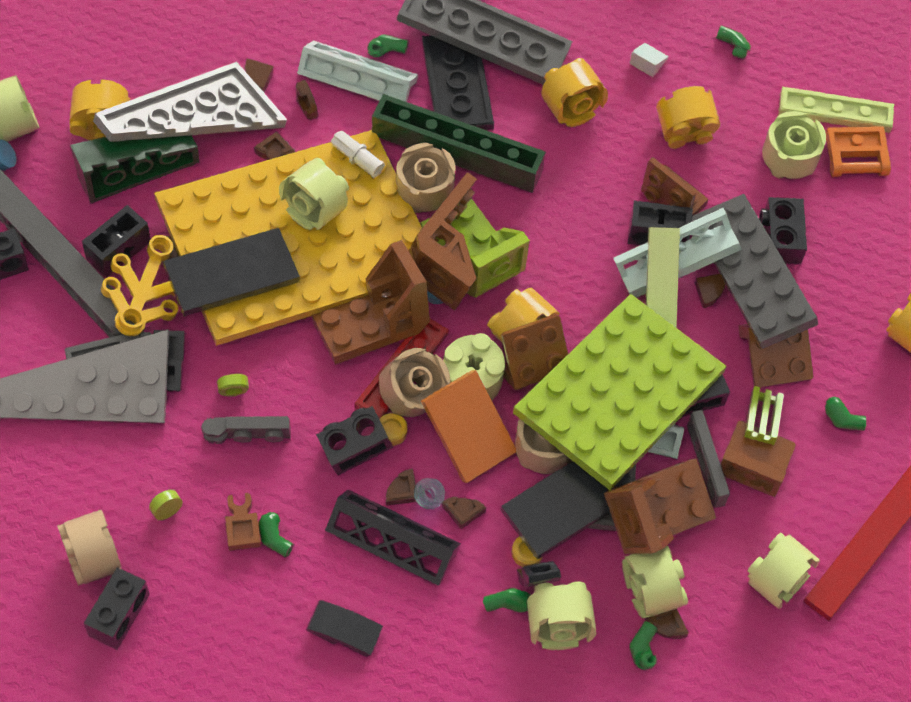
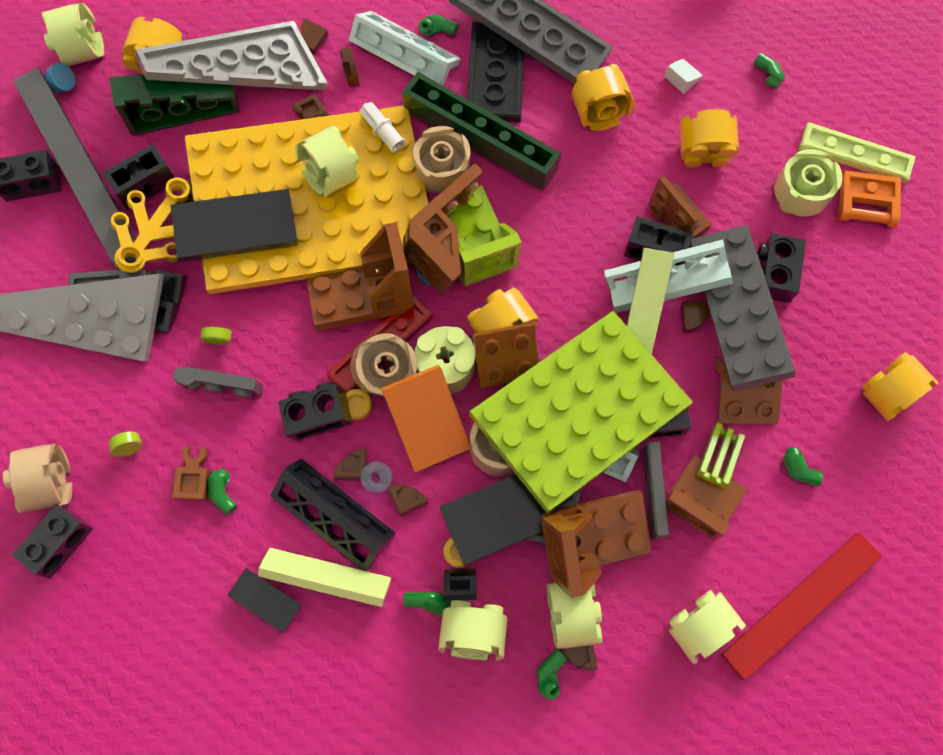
camera: 15 degrees right, 10 degrees up
(400, 595) = (325, 577): none -> yellowish green tile

